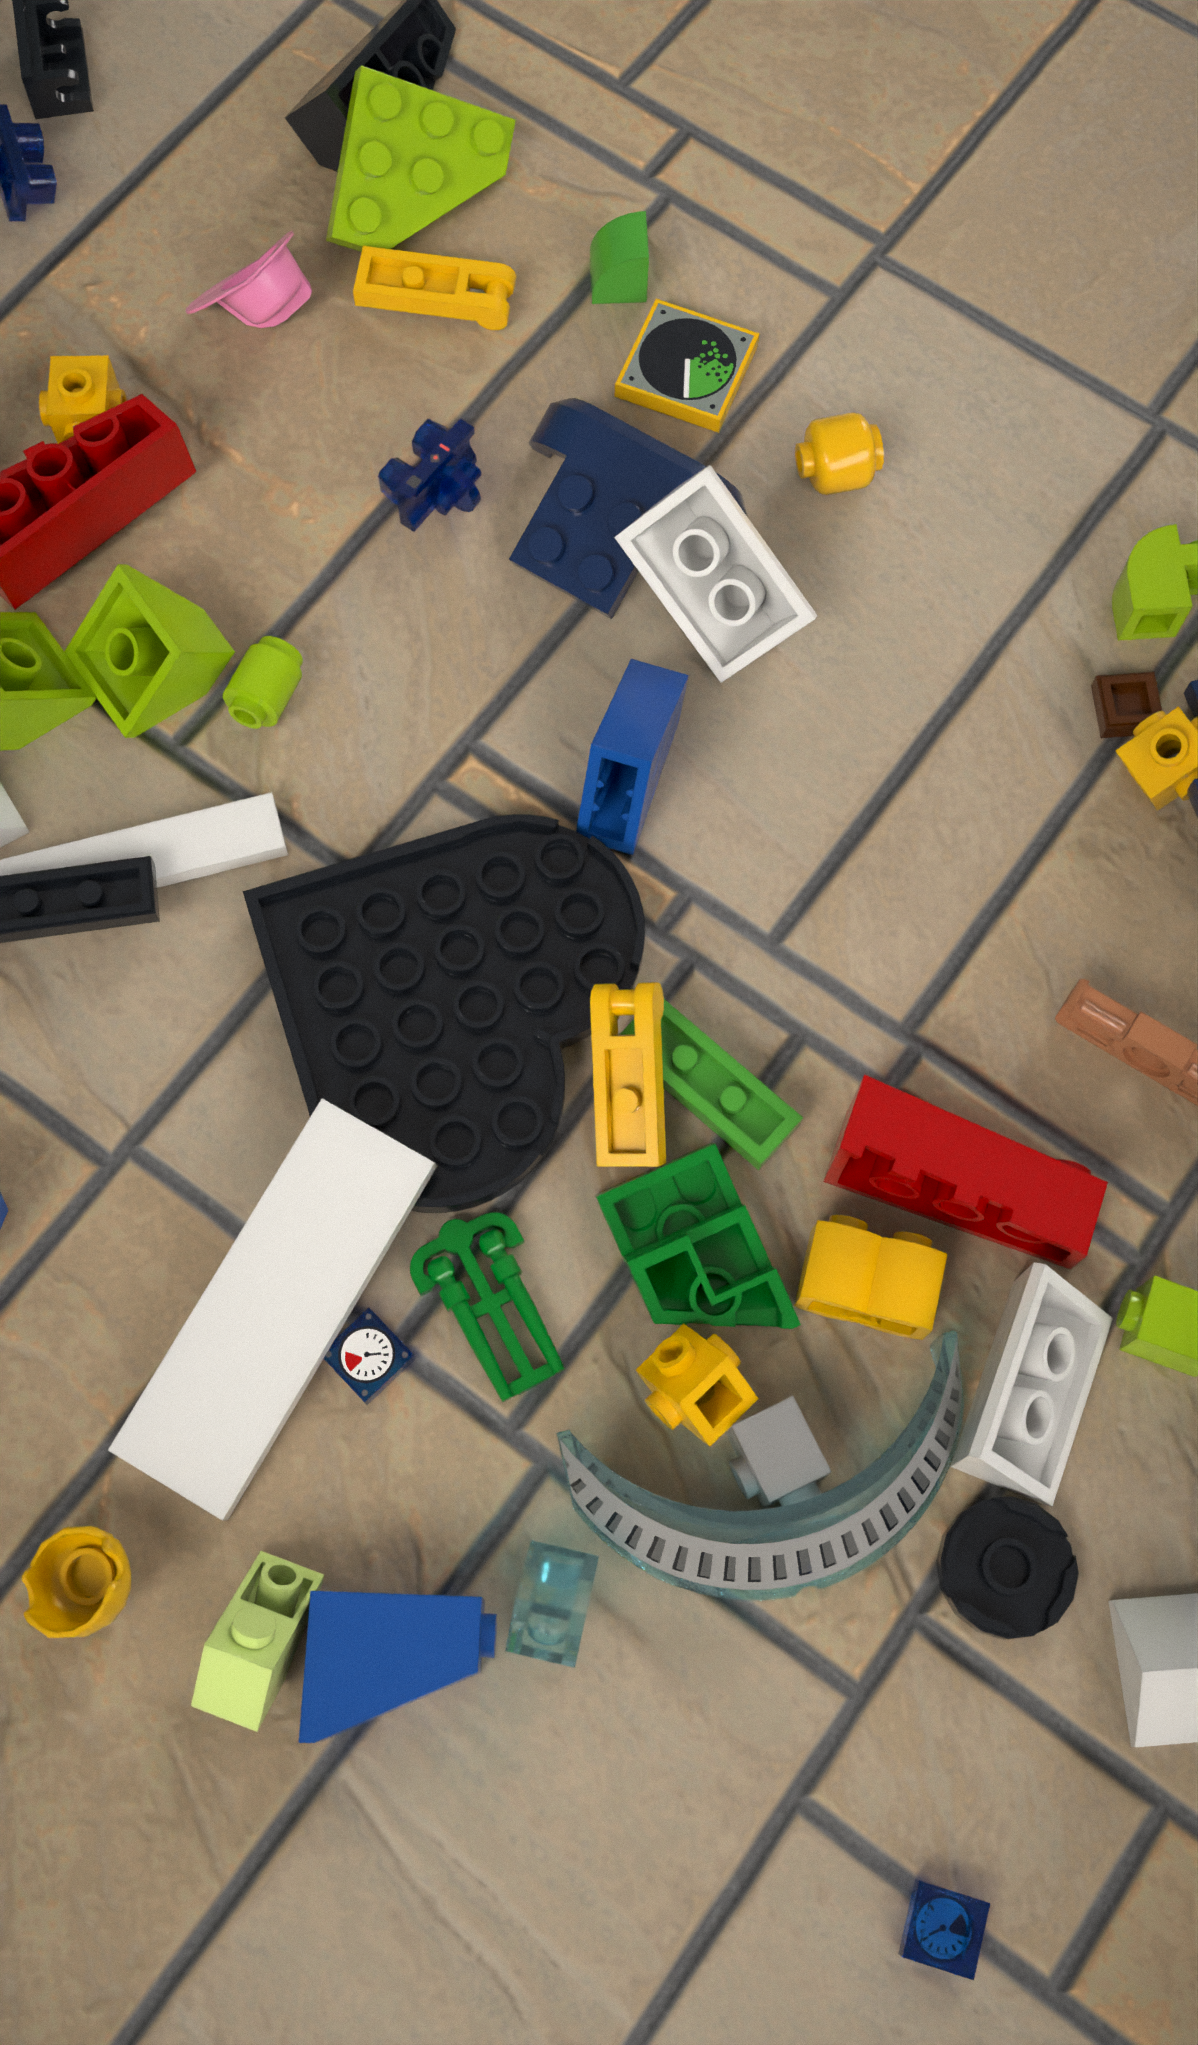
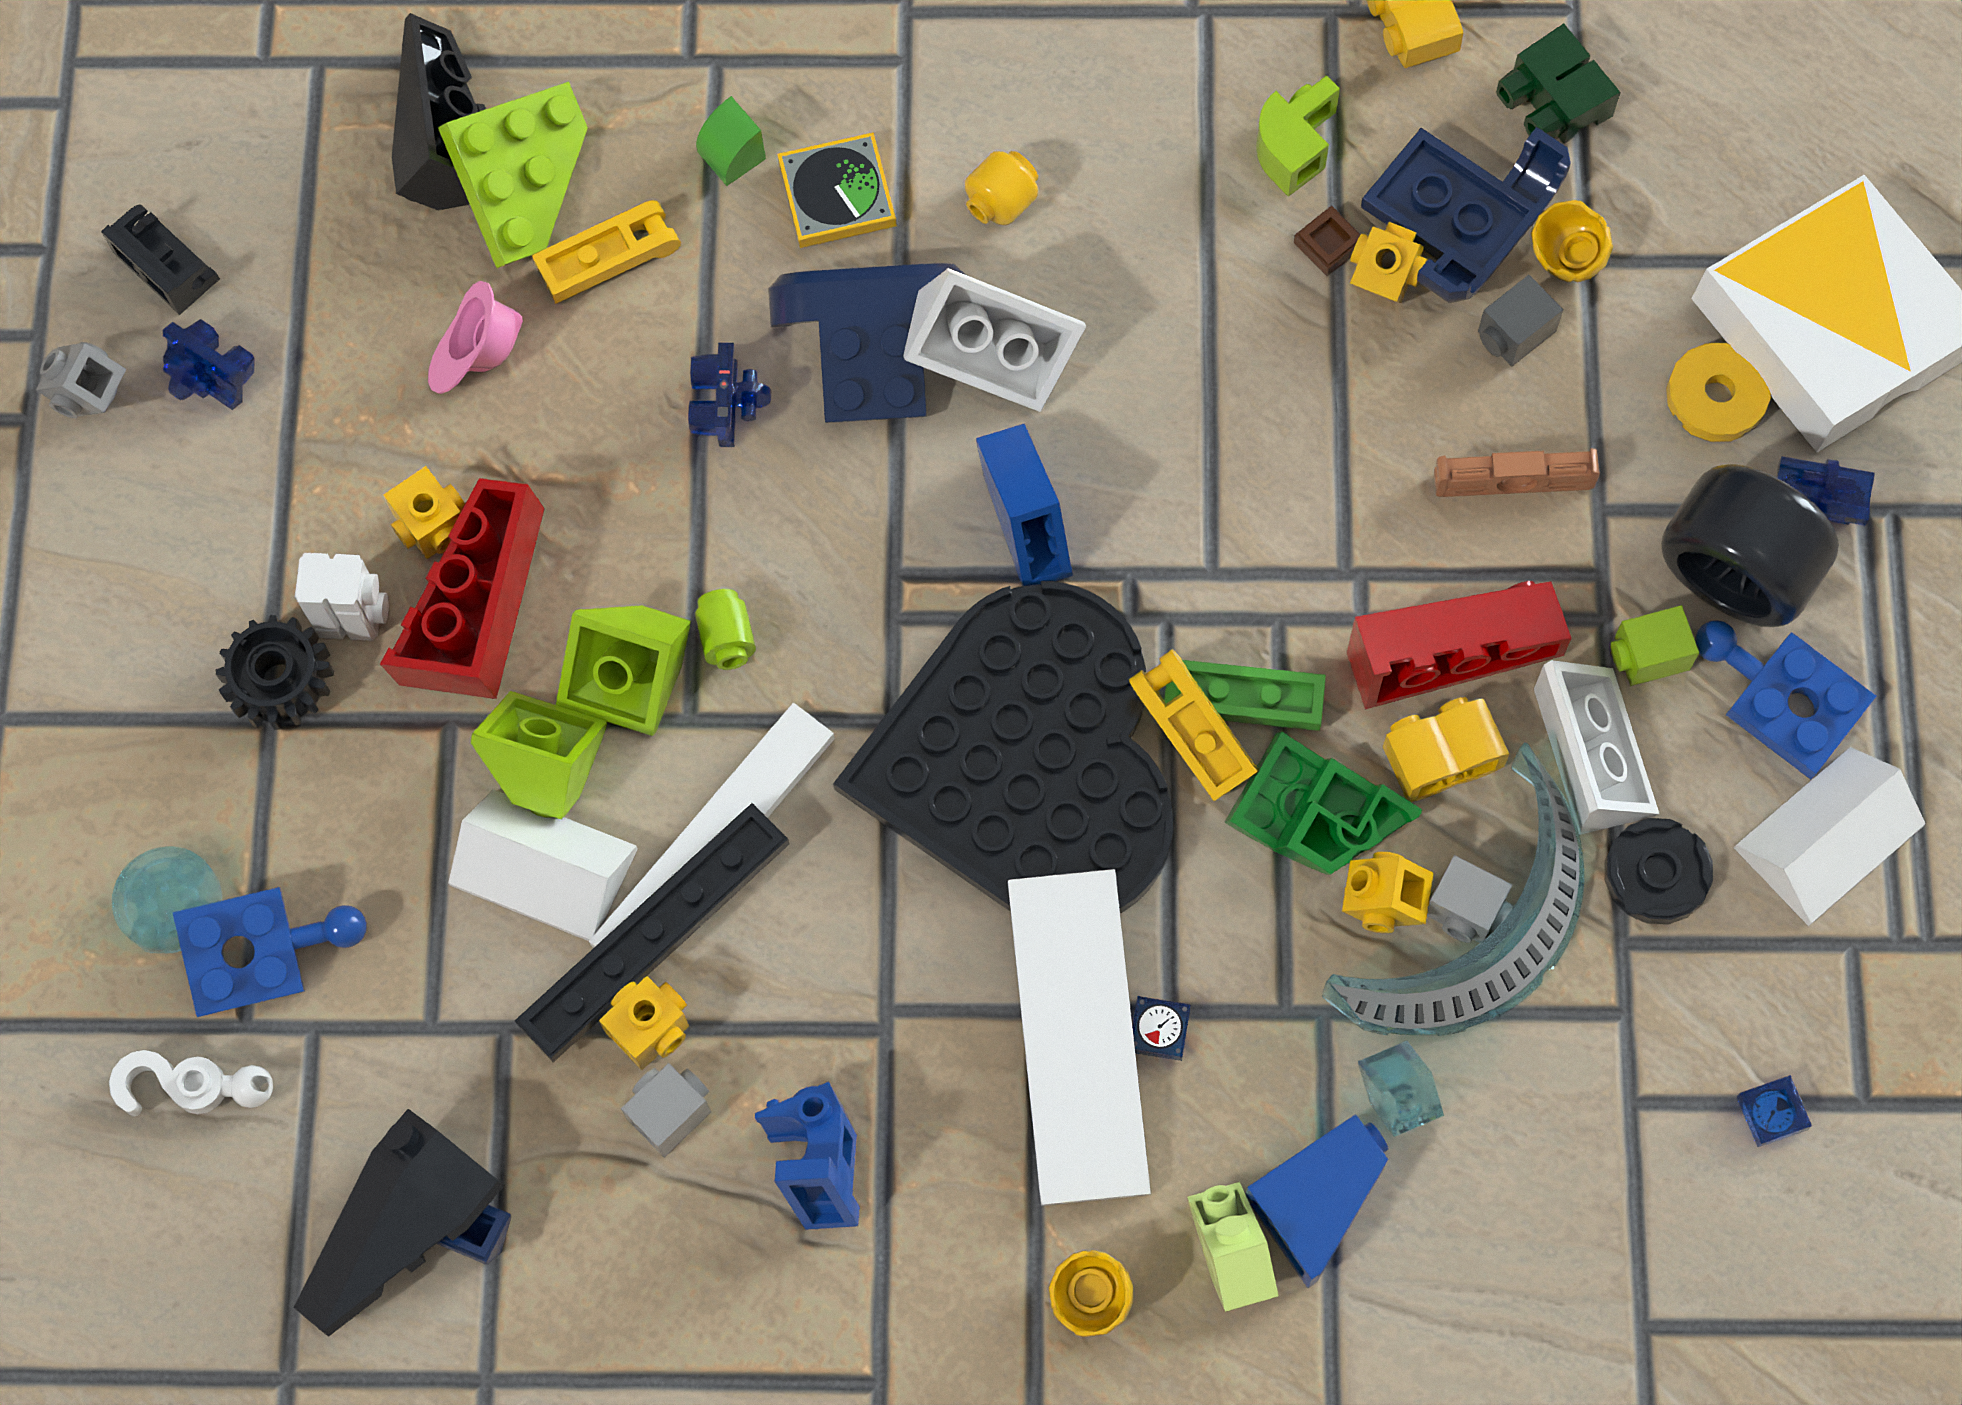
camera: 30 degrees left, 0 degrees up
(456, 1239) = (1156, 914): green piece -> none

